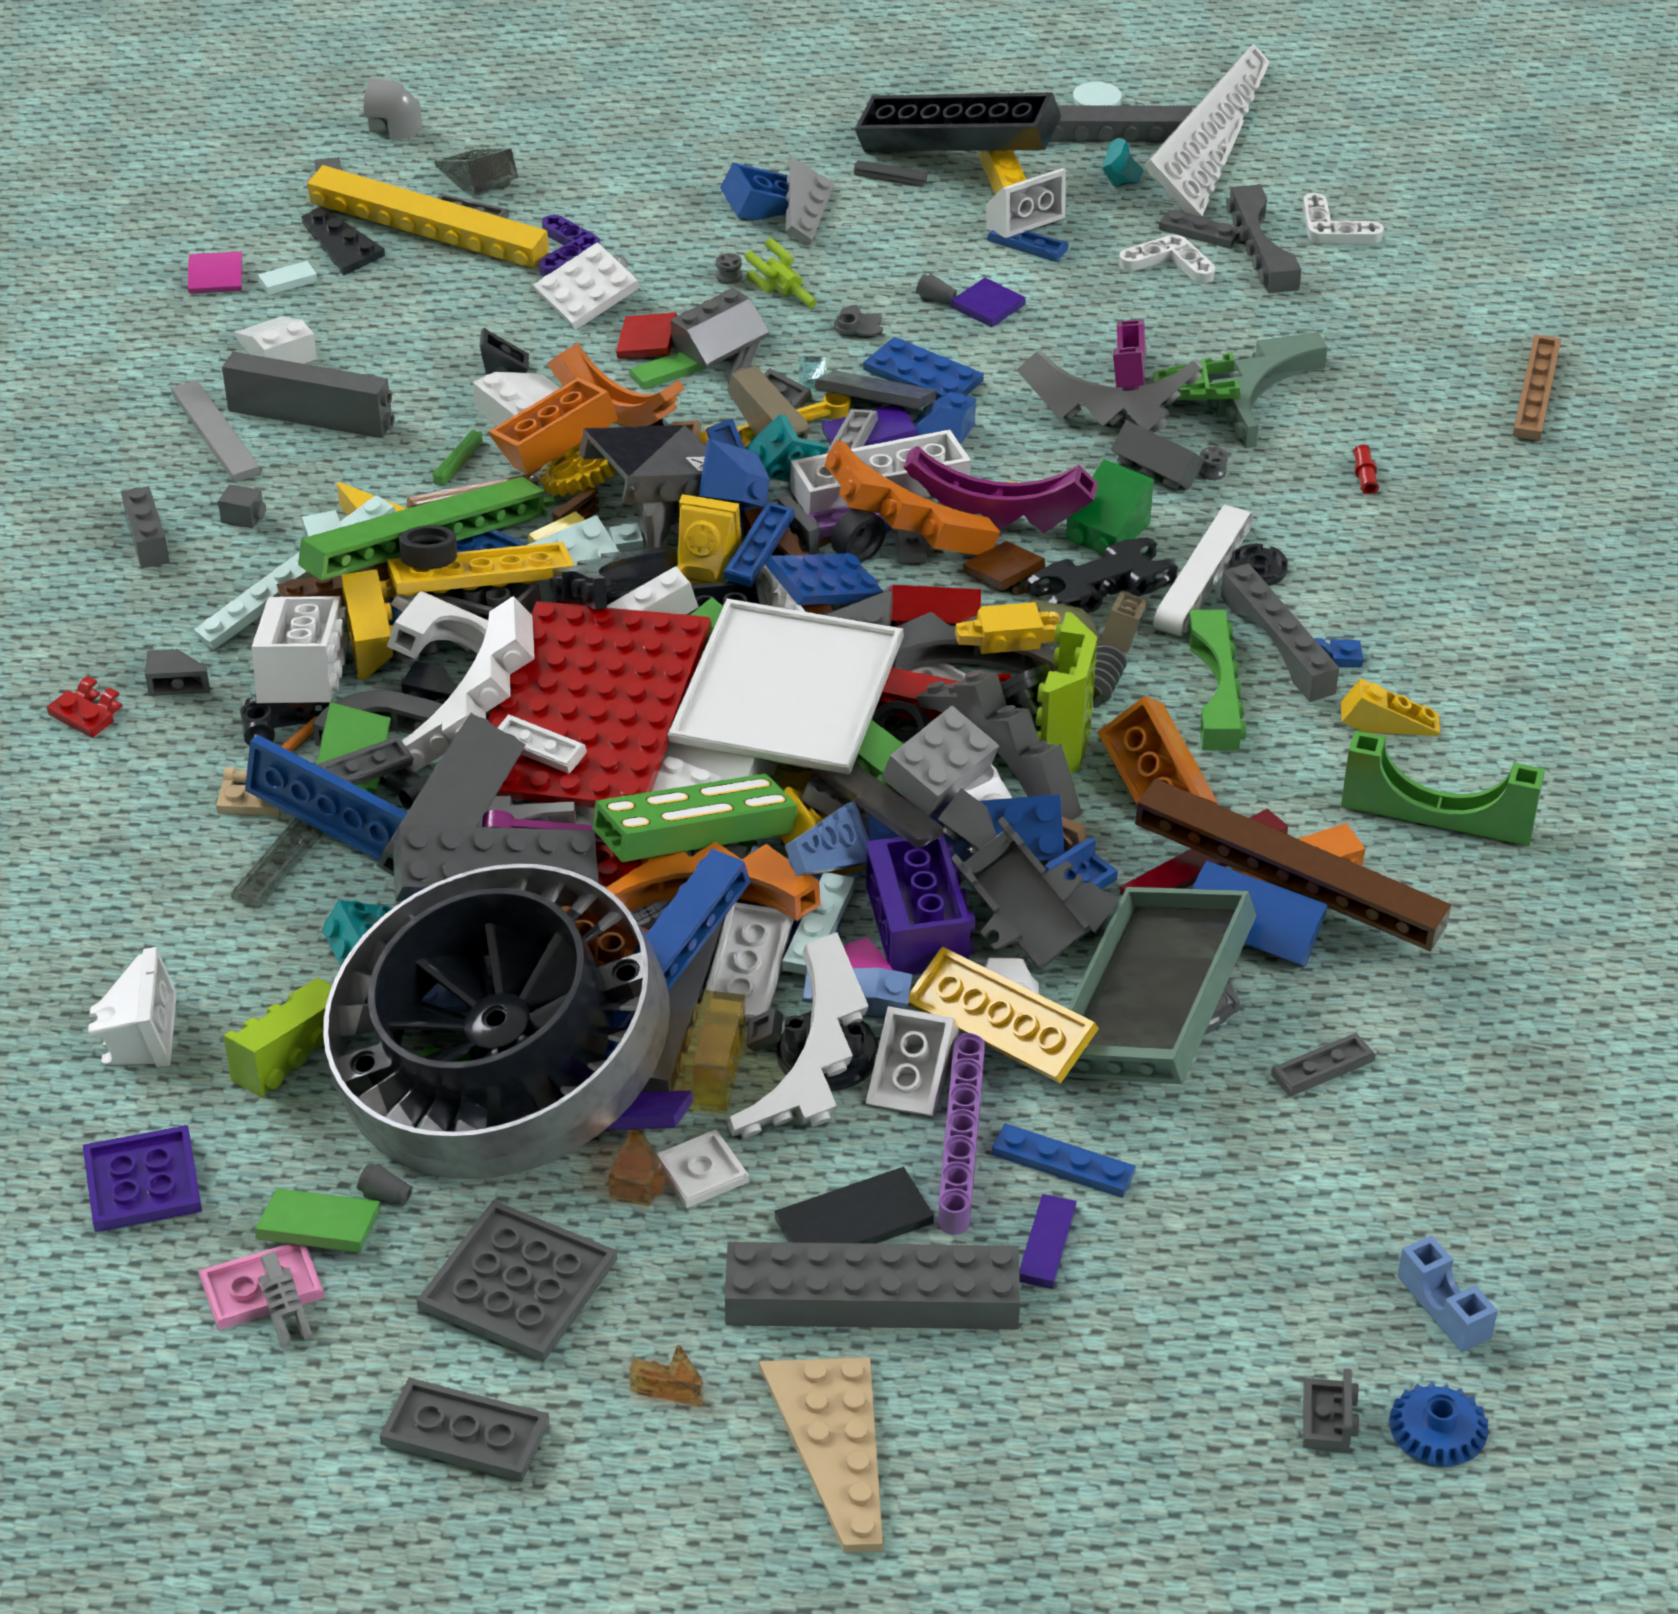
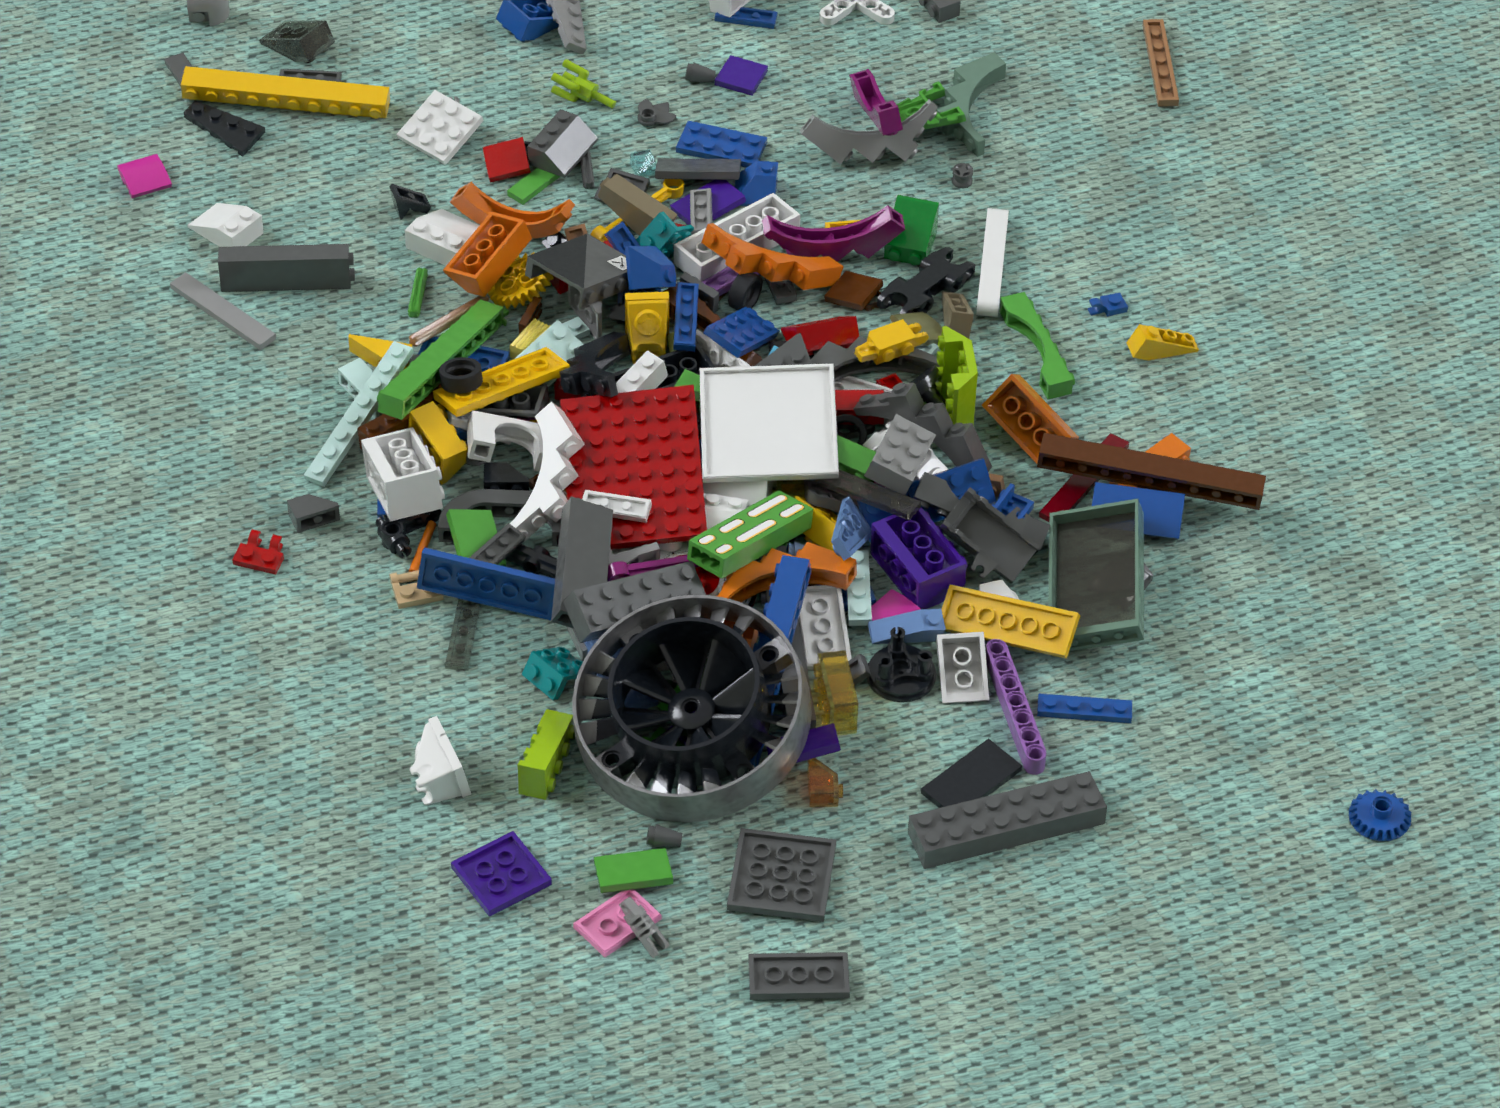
camera: 20 degrees left, 5 degrees up
(145, 527) = (222, 402): dark grey brick -> none
(241, 506) = (283, 369): dark grey brick -> none
(287, 277) = (202, 168): light aqua tile -> none
(560, 229) = (391, 79): dark purple beam -> none
(674, 1382) = (915, 912): clear orange slope -> none
(702, 1168) = (861, 772): white tile -> none
(729, 268) = (537, 88): dark grey wheel -> none
(804, 1089) = (906, 641): white arch -> none
(833, 1430) = (1024, 916): tan wing -> none
(1047, 1241) = (1099, 761): dark purple tile -> none
(1156, 456) = (923, 179): dark grey brick -> none
(1271, 569) = (1026, 249): black tile -> none
(1306, 660) = (1093, 318): dark grey arch -> none
(1322, 1064) = (1218, 603): dark grey tile -> none
(1328, 1412) = (1315, 824): dark grey bracket -> none
(1365, 469) = (1069, 156): red pin -> none
(1428, 1275) = (1340, 724): medium blue arch -> none
(1498, 813) = (1264, 400): bright green arch -> none

